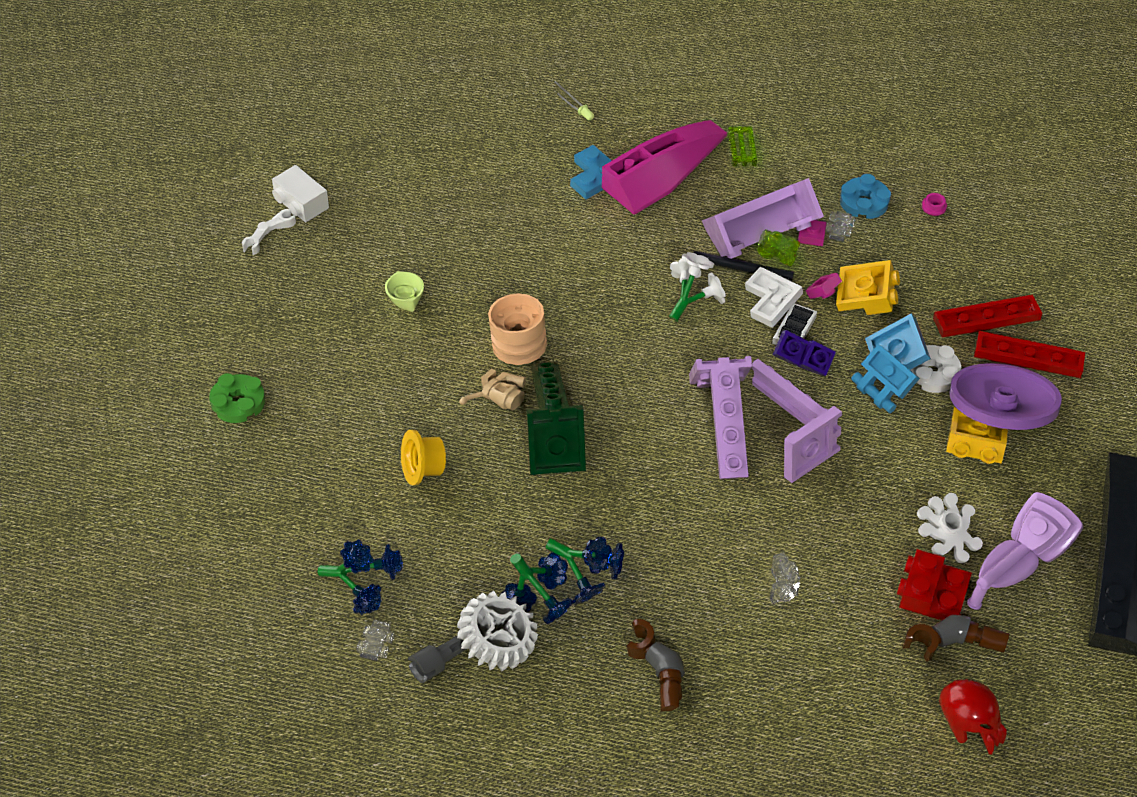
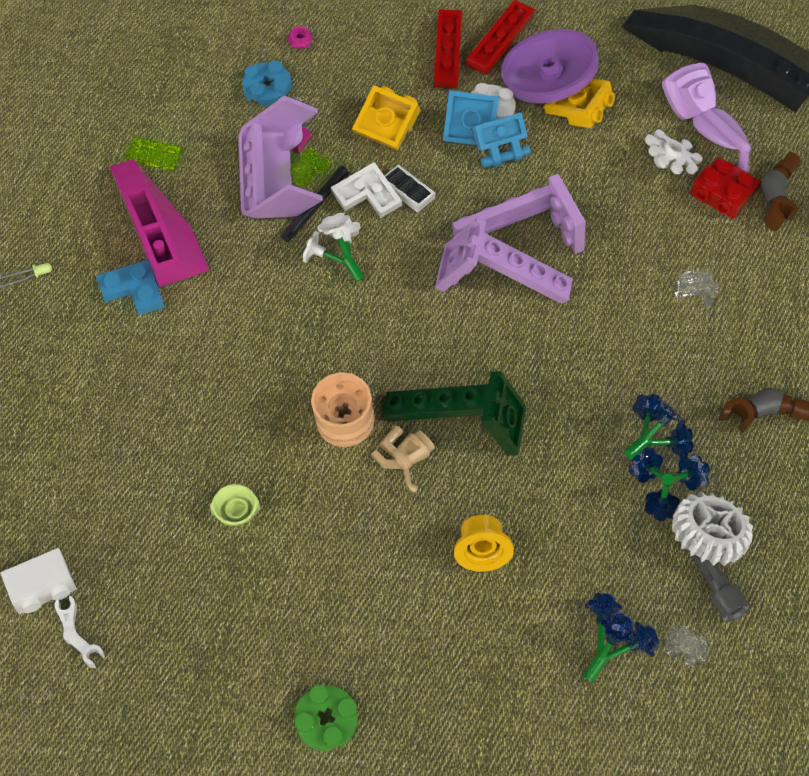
camera: 75 degrees left, 10 degrees up
(804, 353) = (446, 189): dark purple slope -> none
(824, 286) = (370, 148): dark pink plate -> none

